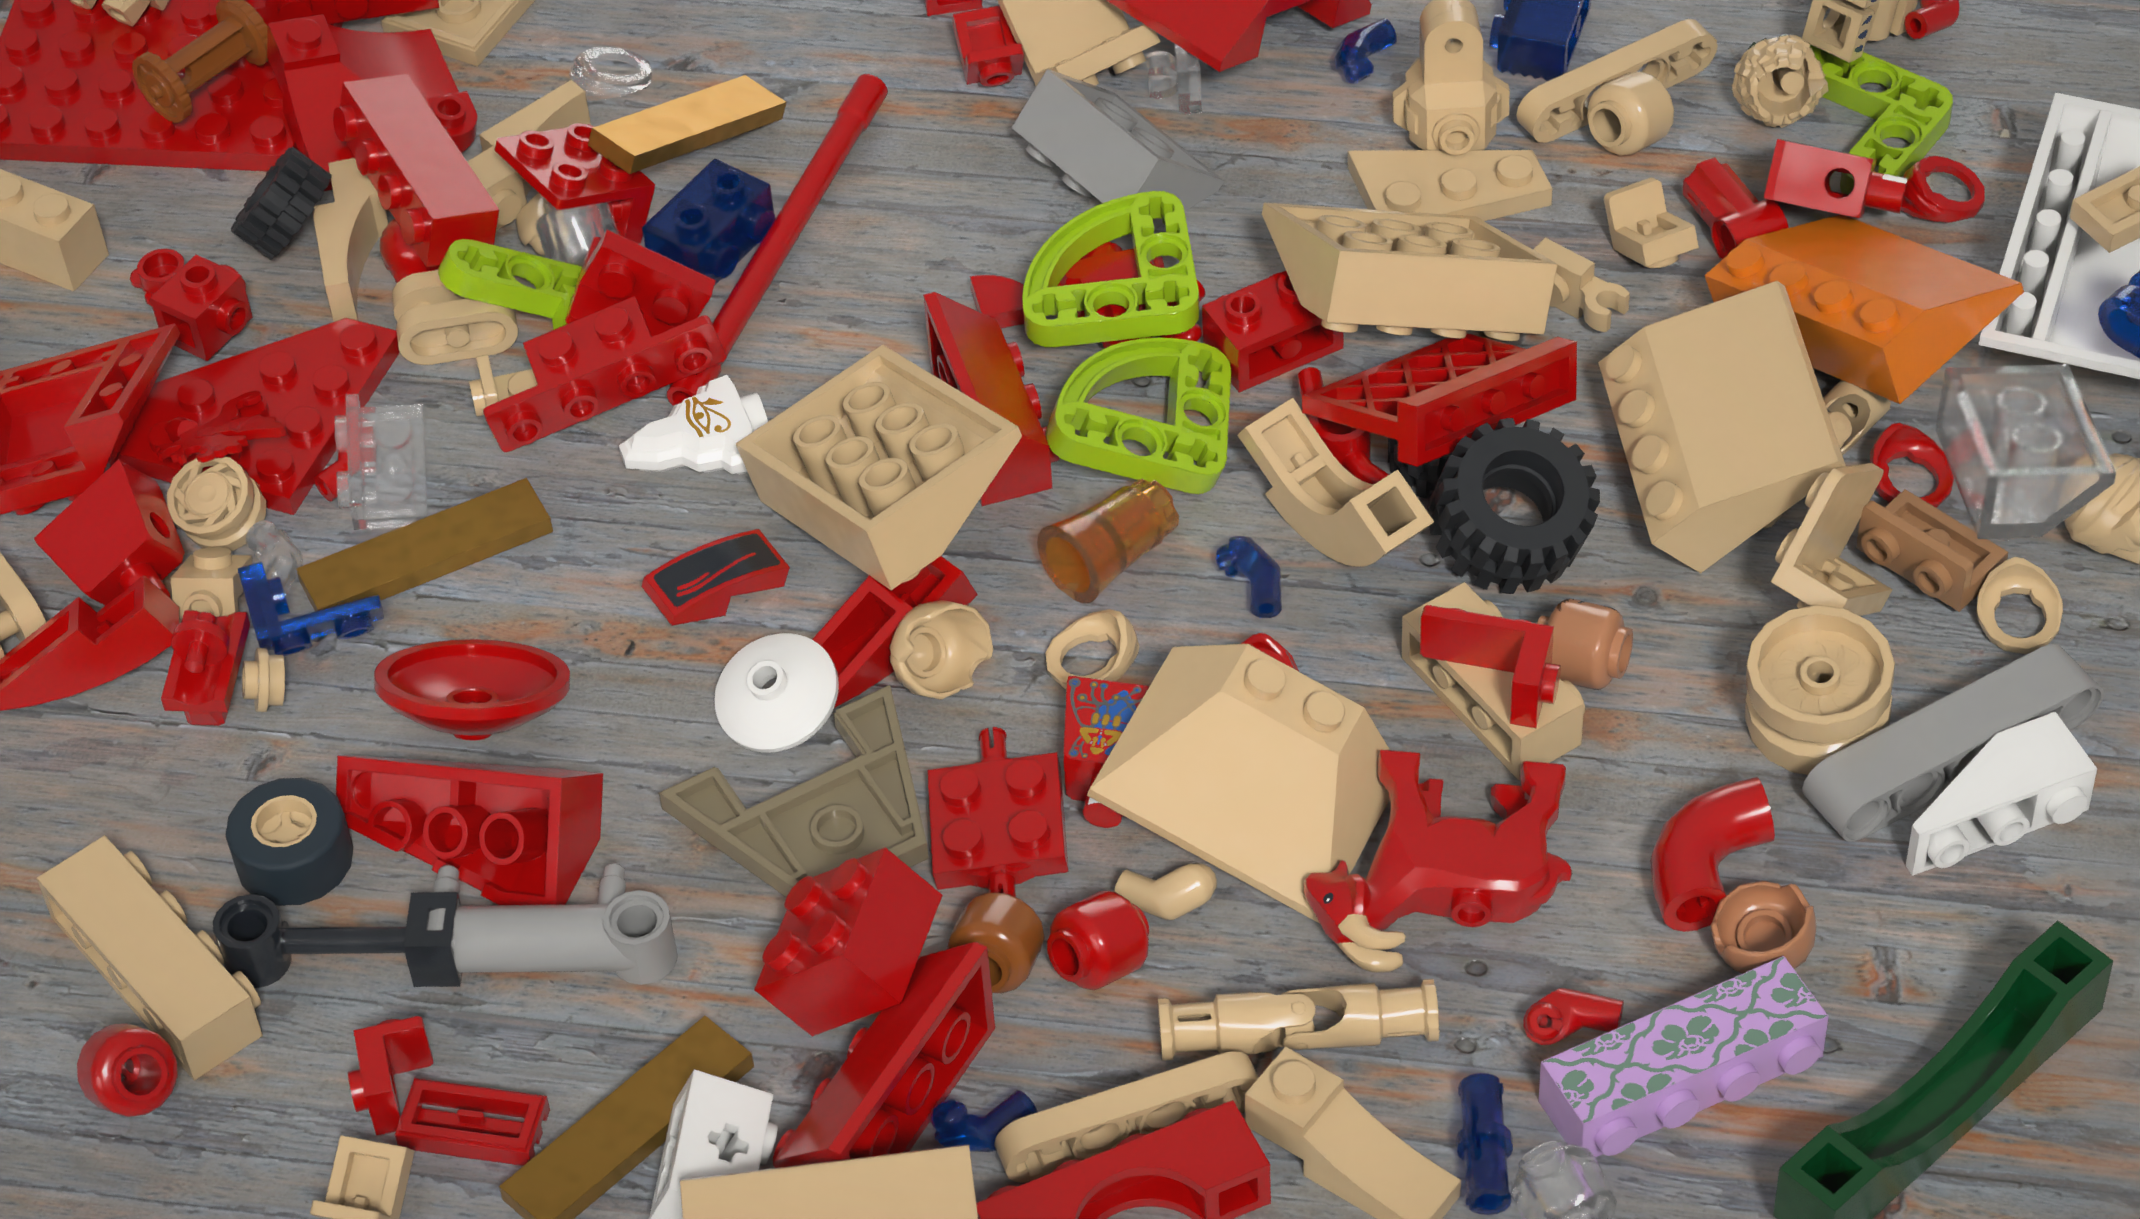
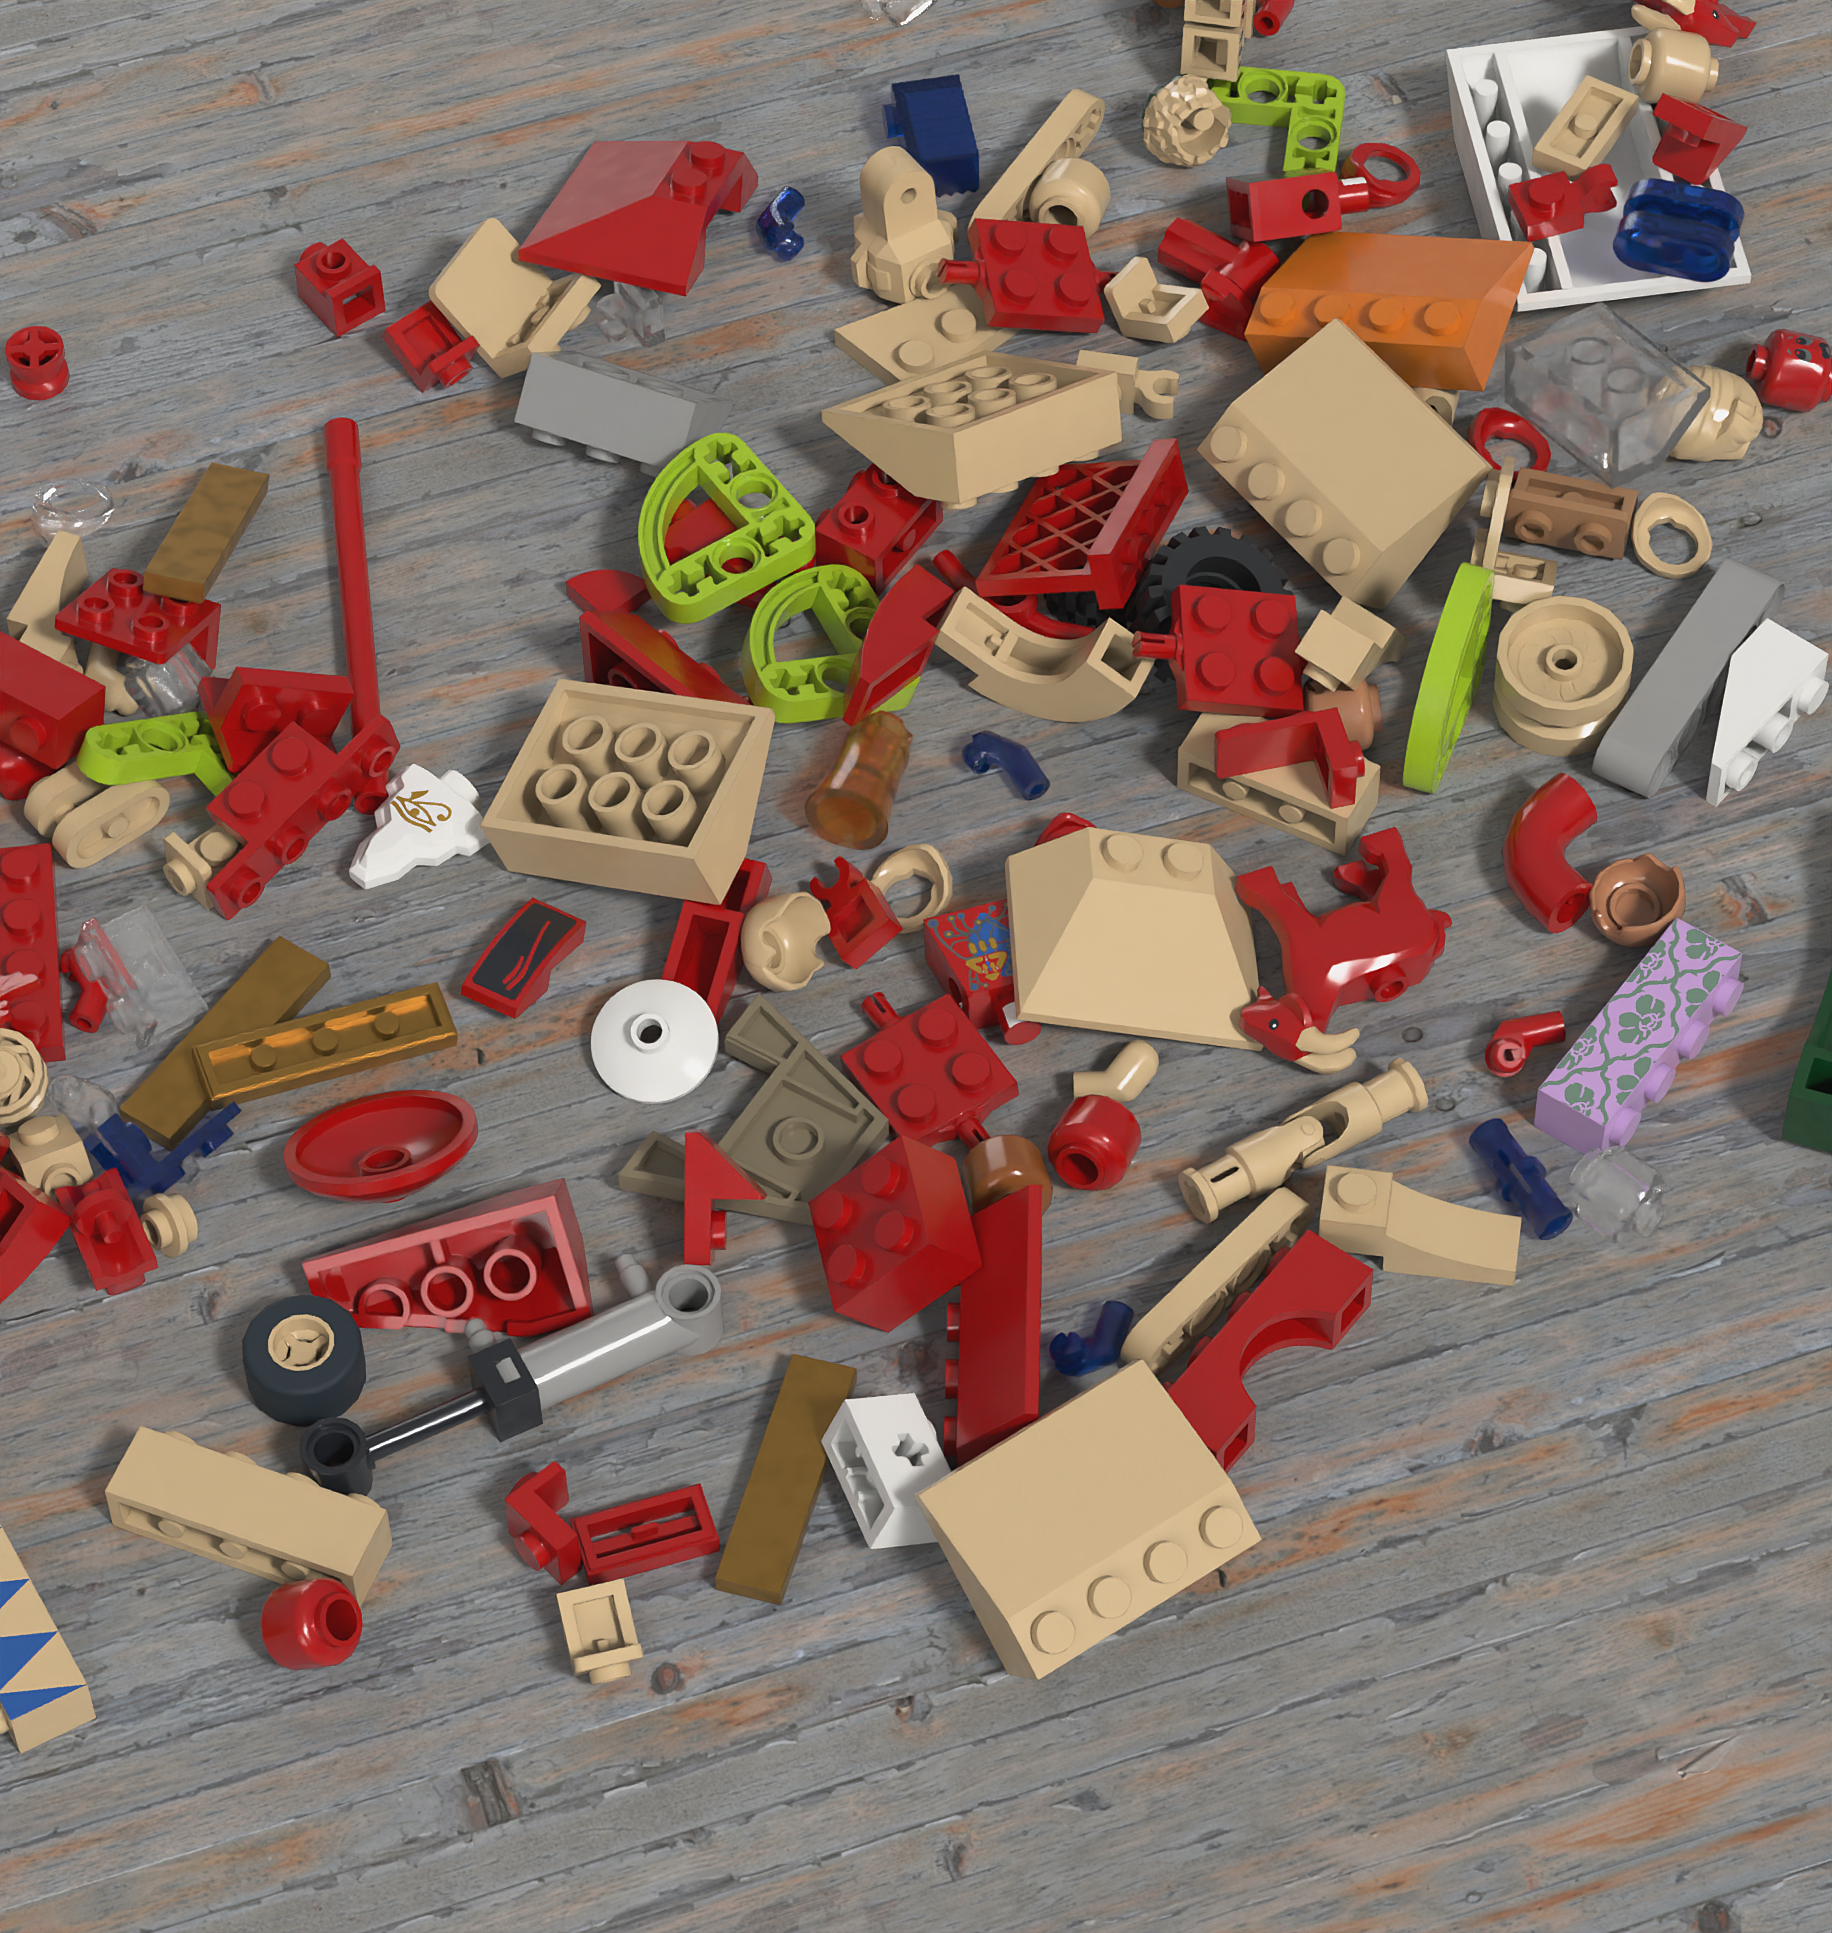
camera: 30 degrees left, 5 degrees up
(497, 584) = (324, 1046): none -> pearl gold tile
(713, 220) = (289, 616): clear blue brick -> none
(716, 823) = (710, 1176): none -> red slope
(1027, 655) = (857, 914): none -> red plate
(1199, 426) = (896, 642): none -> red slope
(1500, 545) = (1231, 651): none -> red plate
(1546, 162) = (1031, 275): none -> red plate
(1617, 579) = (1348, 645): none -> tan slope
(1668, 690) = (1450, 677): none -> lime beam
(1713, 241) = (1227, 303): none -> red tile
(2069, 258) = (1556, 206): none -> red plate

